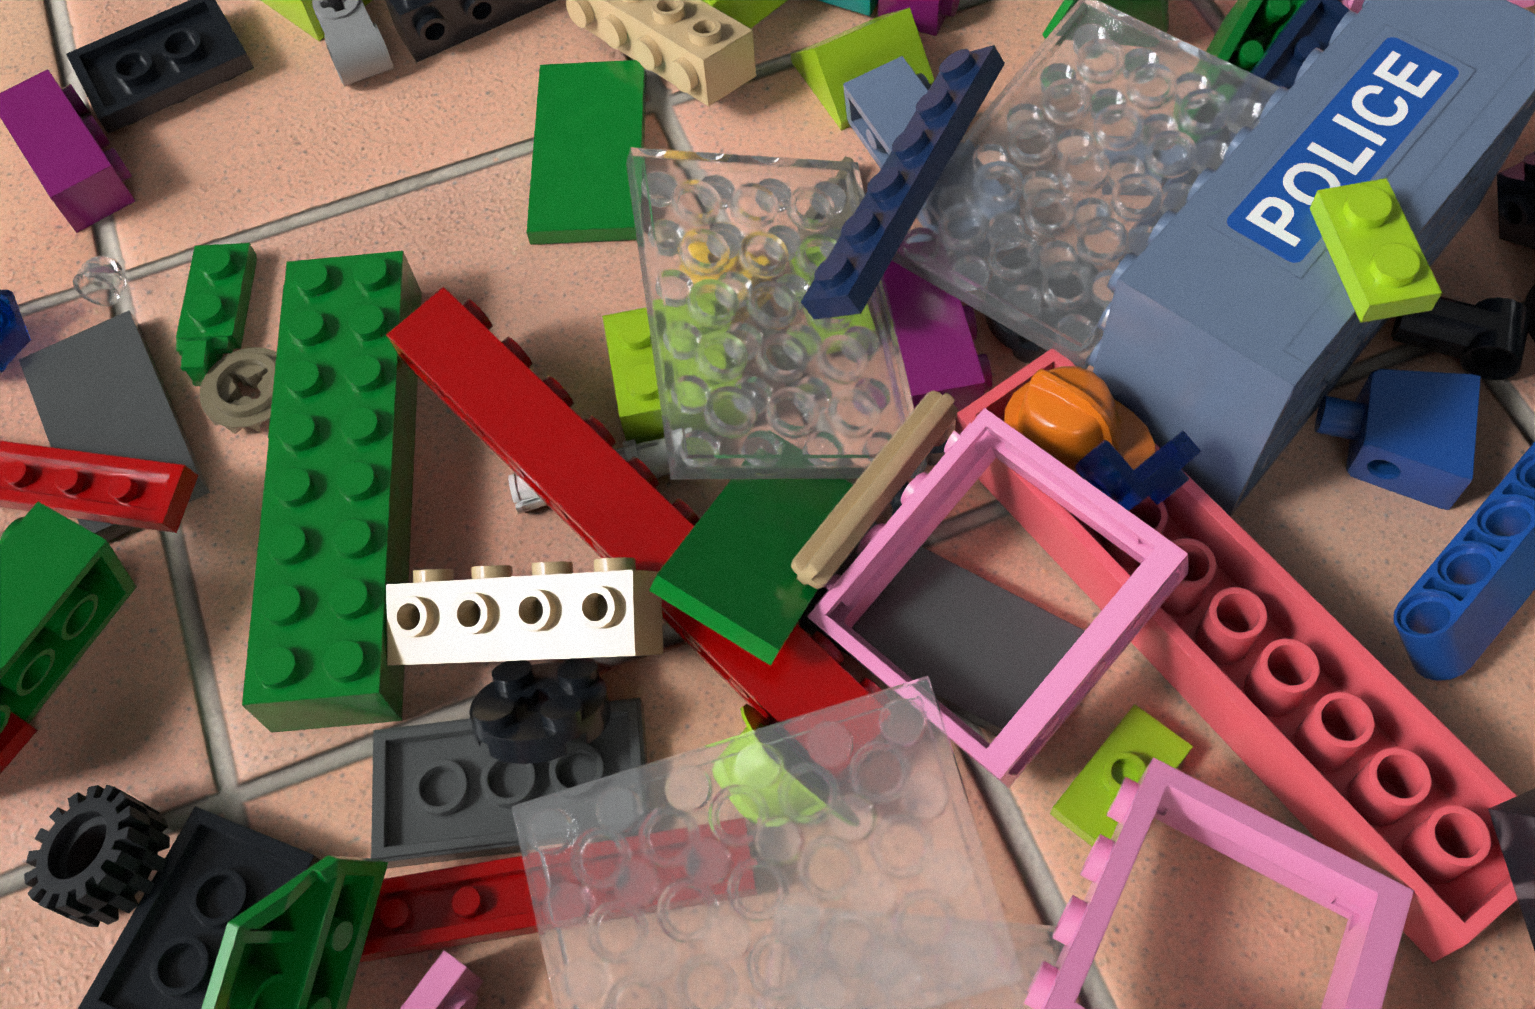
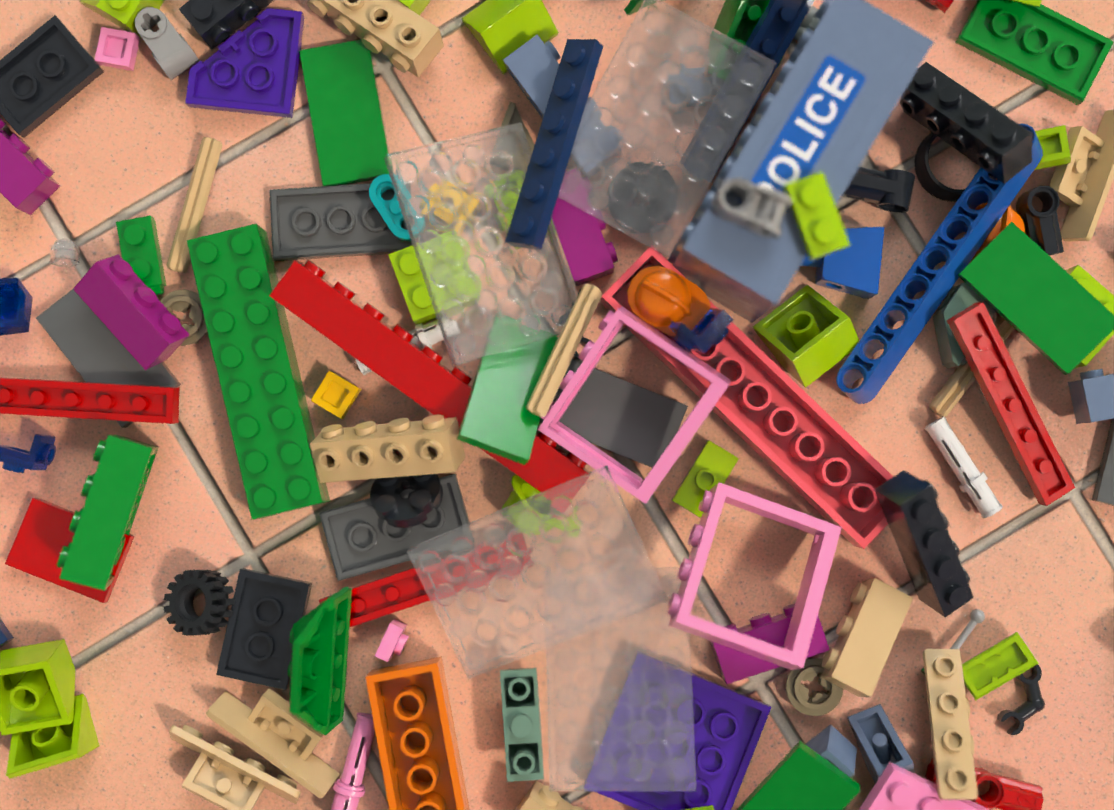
camera: 15 degrees left, 25 degrees up
(164, 354) = (131, 311): none -> magenta brick
(281, 40) = (117, 48): none -> bright pink plate
(326, 231) = (194, 203): none -> tan axle
(461, 534) = (336, 394): none -> yellow plate
(463, 83) = (252, 68): none -> dark purple plate
(540, 282) = (329, 223): none -> dark grey tile
(623, 267) = (388, 209): none -> teal plate
(1247, 207) = (759, 210): none -> light grey piece
(1346, 540) = (807, 335): none -> lime slope

